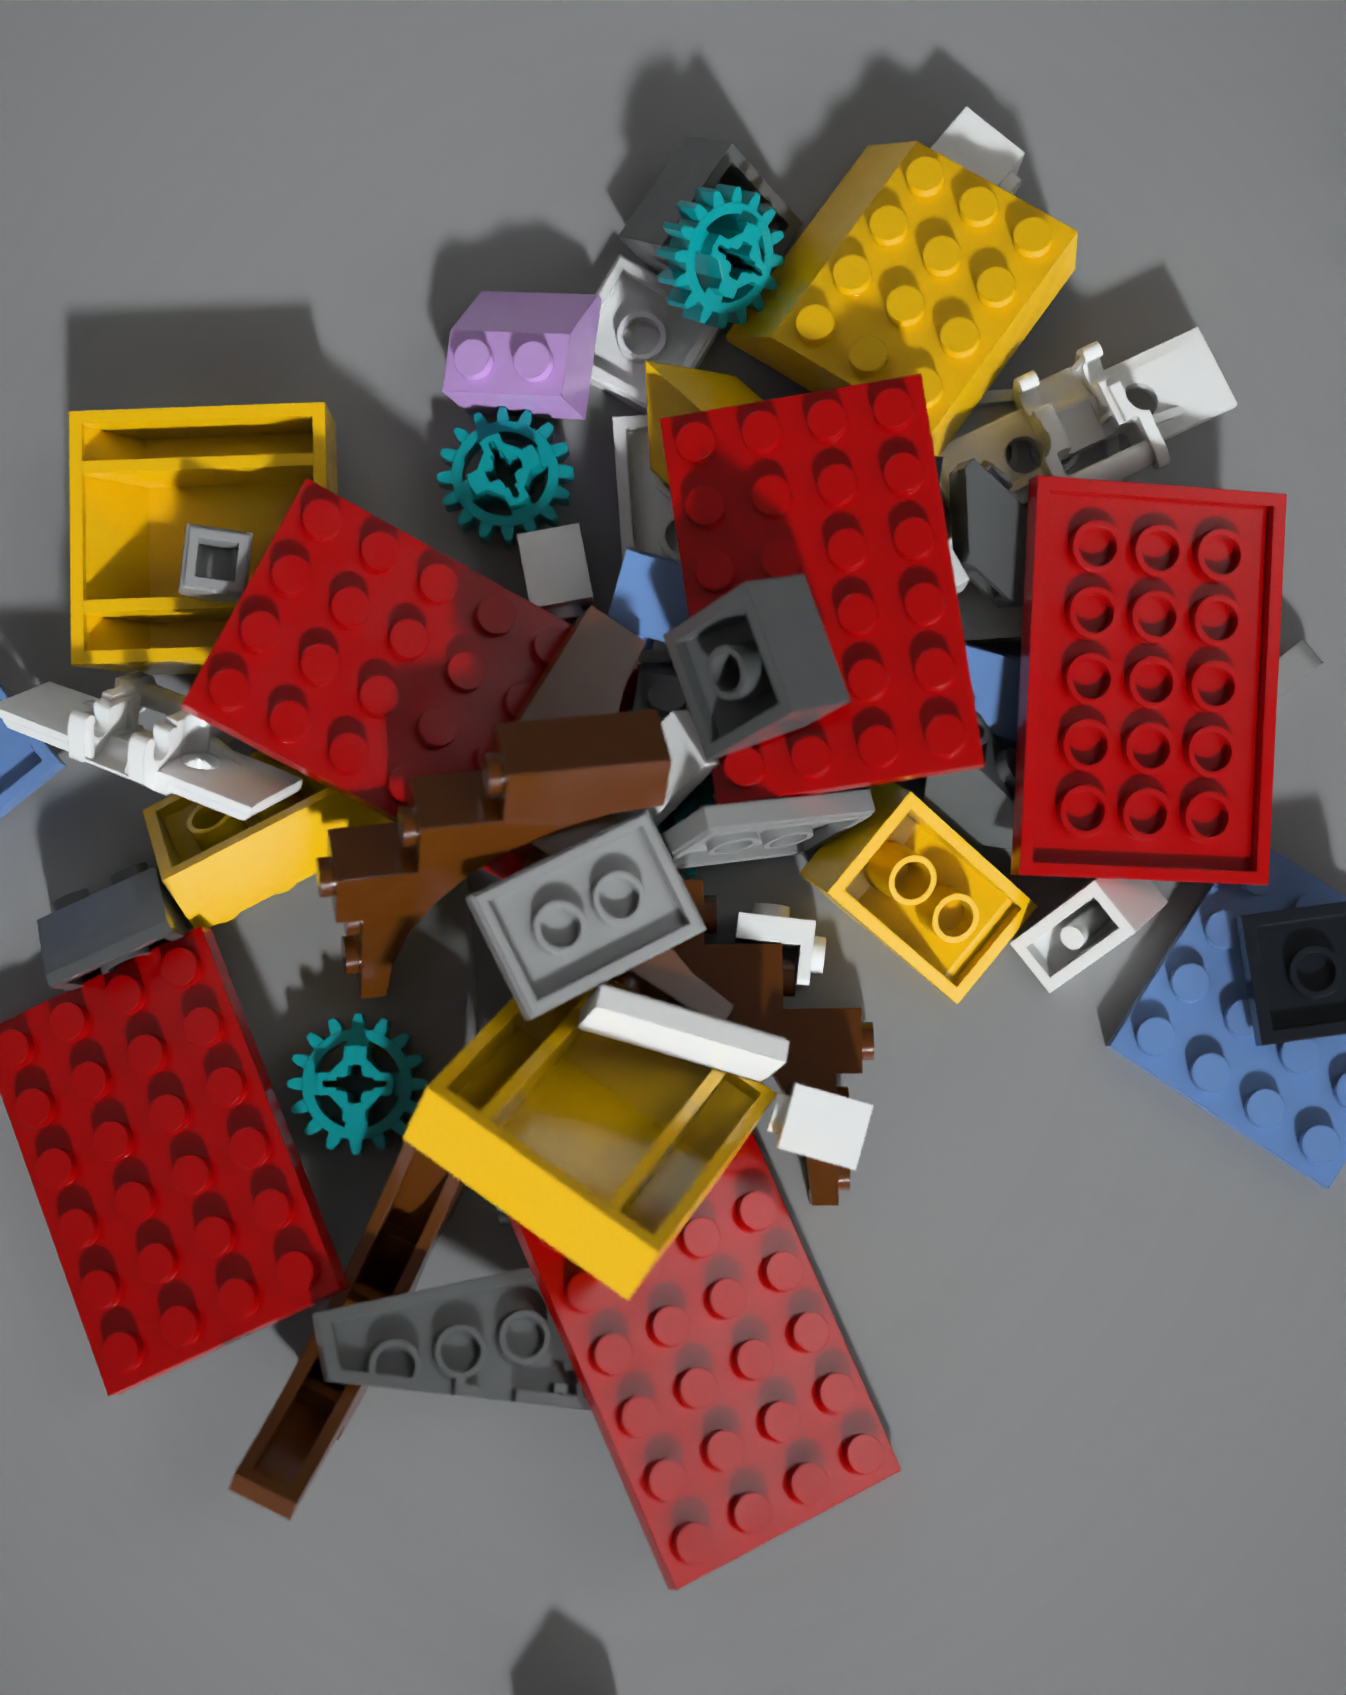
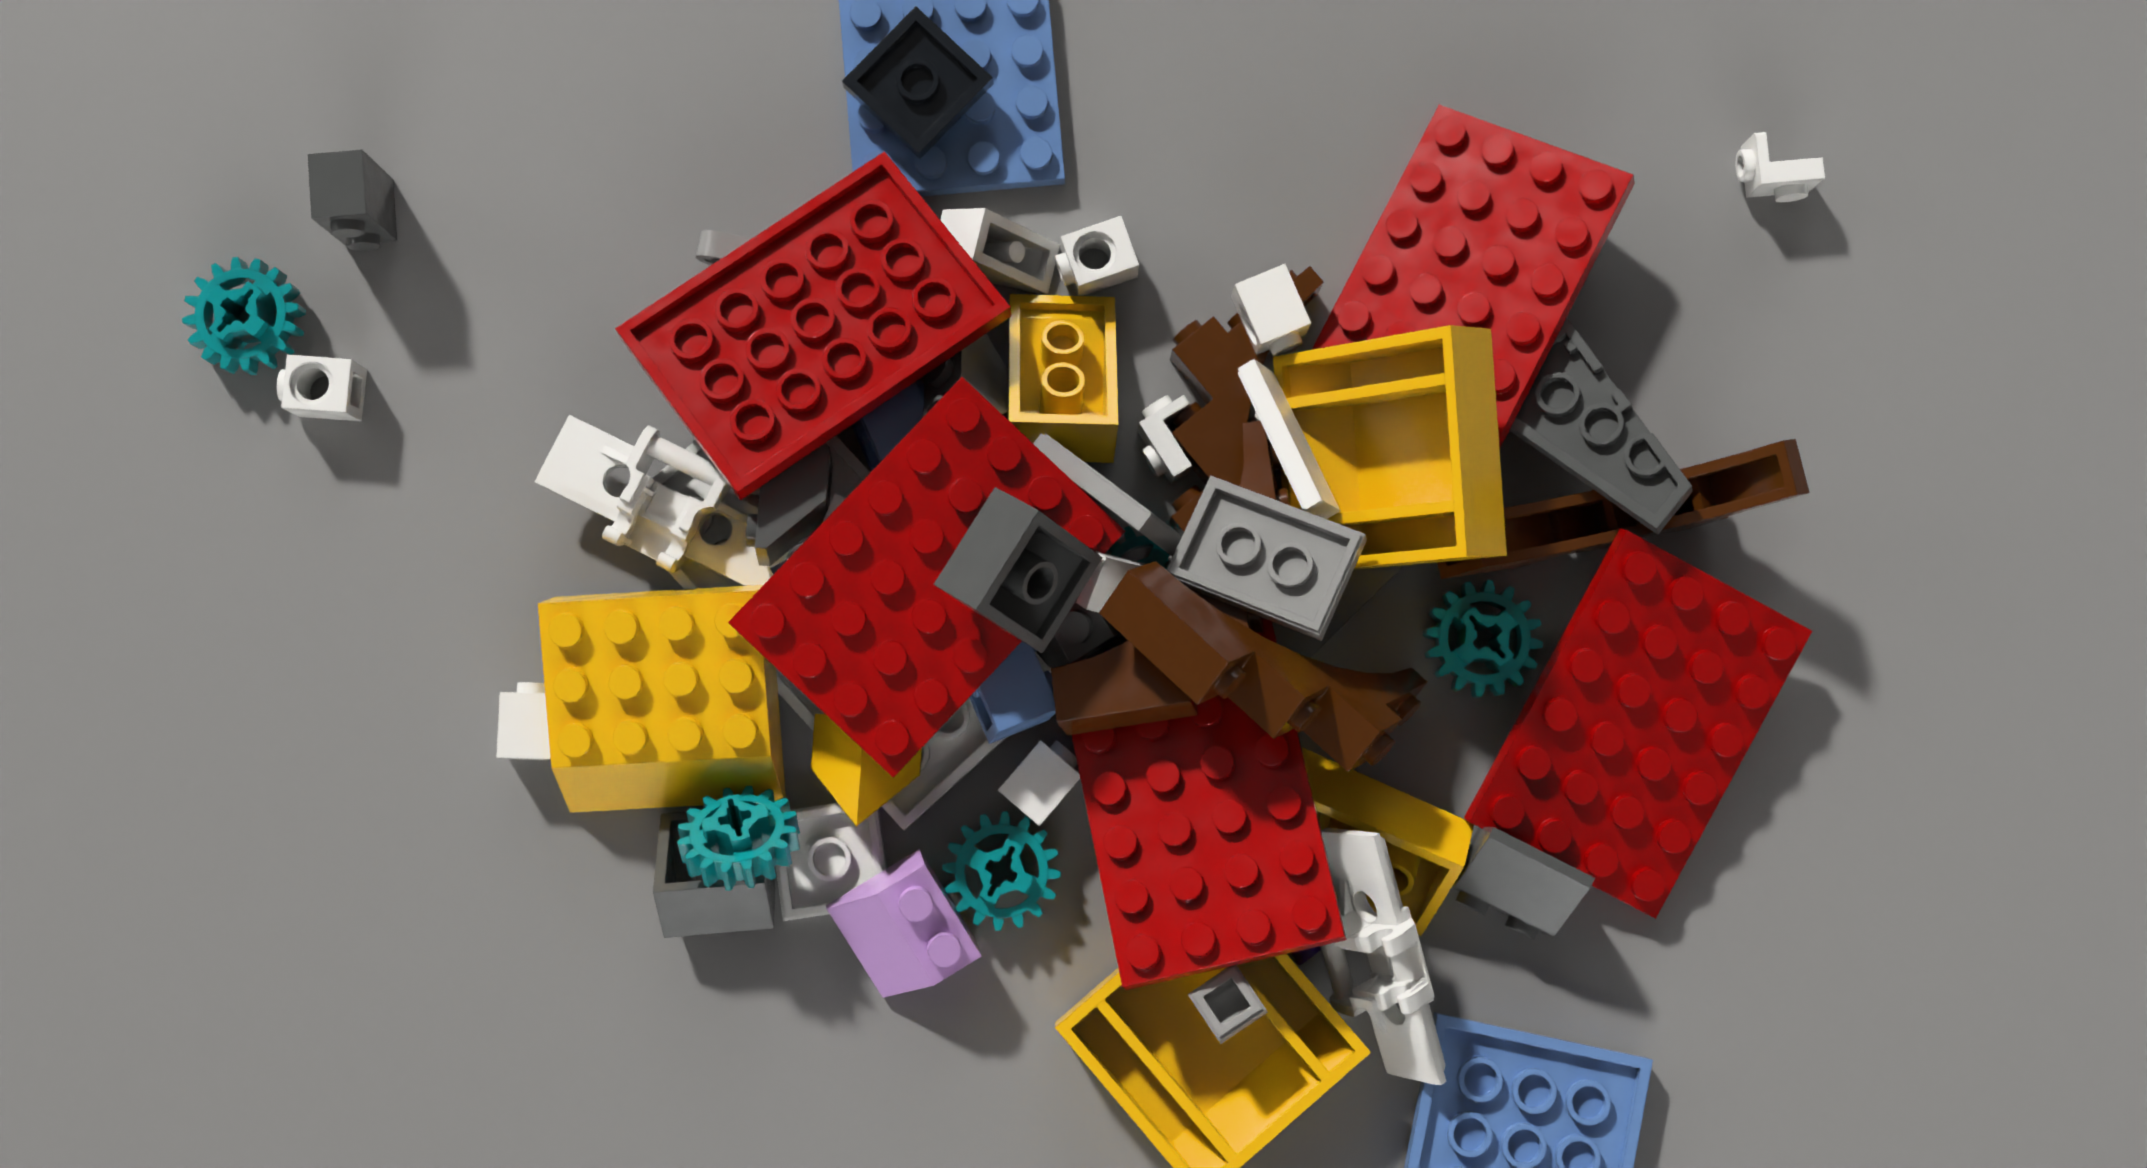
camera: 135 degrees left, 0 degrees up
(987, 1034) = (1107, 236): none -> white brick

